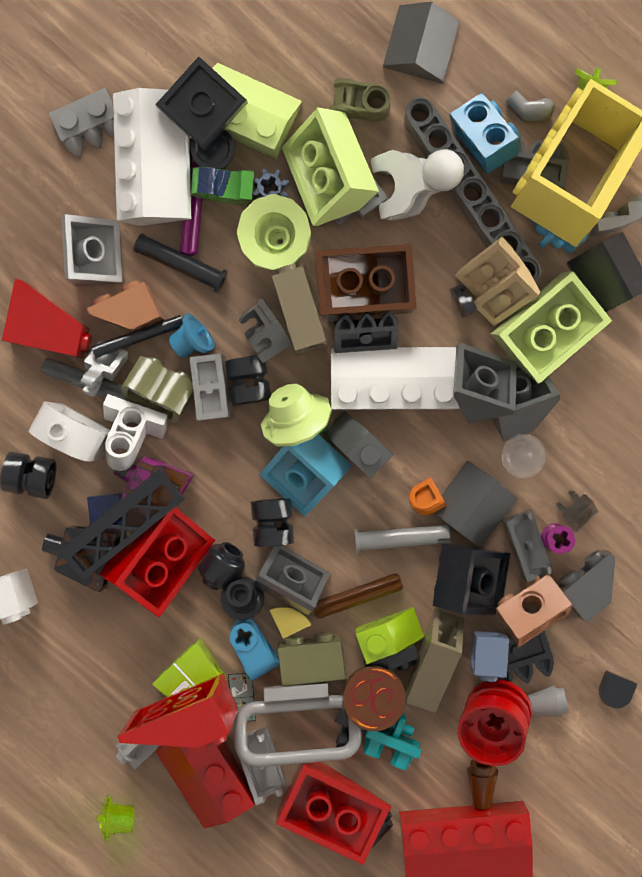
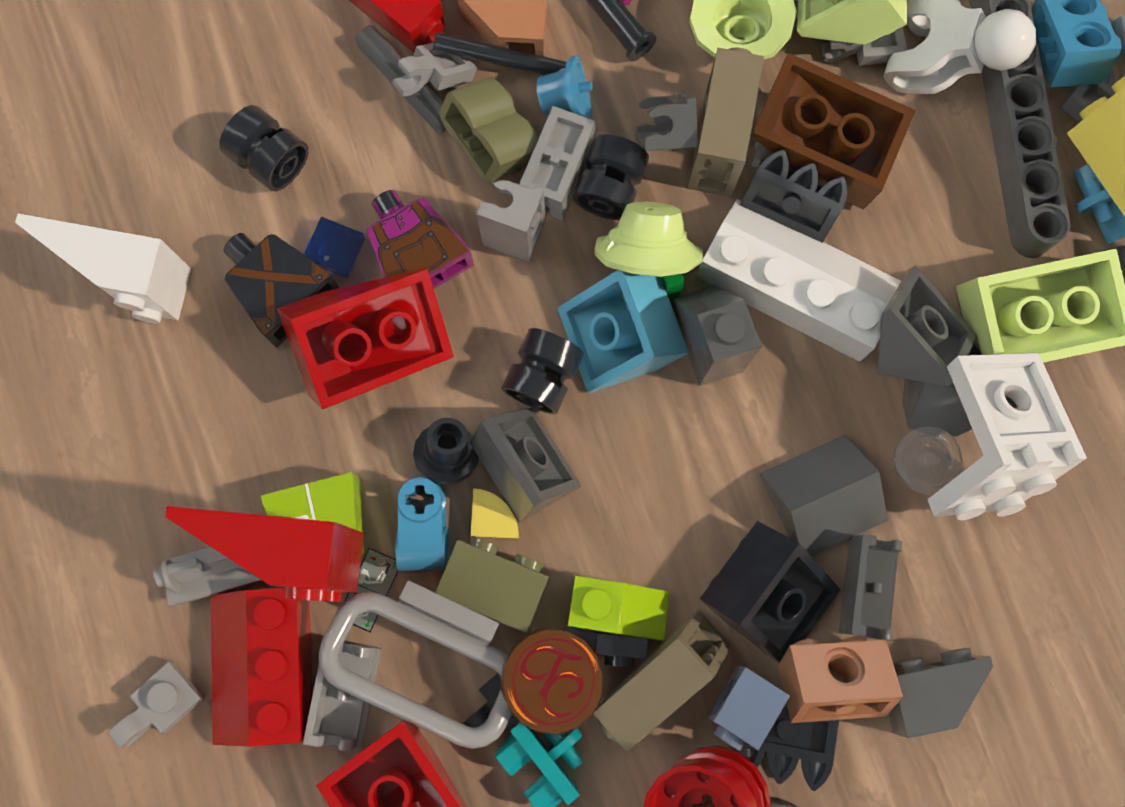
camera: 30 degrees right, 10 degrees down
(64, 430) = (352, 111): white window -> none
(113, 514) = (344, 242): black fence -> none
(115, 818) = (100, 659): clear neon green piece -> none
(129, 438) = (424, 157): white tile -> none
(162, 822) = (161, 703): none -> light grey plate
(211, 442) = (513, 228): none -> light grey hinge
(221, 565) = (443, 392): black head -> none
(358, 595) = (602, 534): reddish brown axle -> none
(401, 537) = (703, 486): light grey pin -> none
(426, 498) = (764, 452): orange tile -> none
(465, 303) = (941, 229): black tile -> none
(498, 281) = (1004, 220): tan slope -> none
(565, 434) = (1019, 447): none -> white bracket
(566, 533) = (934, 606): magenta bush -> none
(579, 512) = (967, 580): clear smoke tile -> none

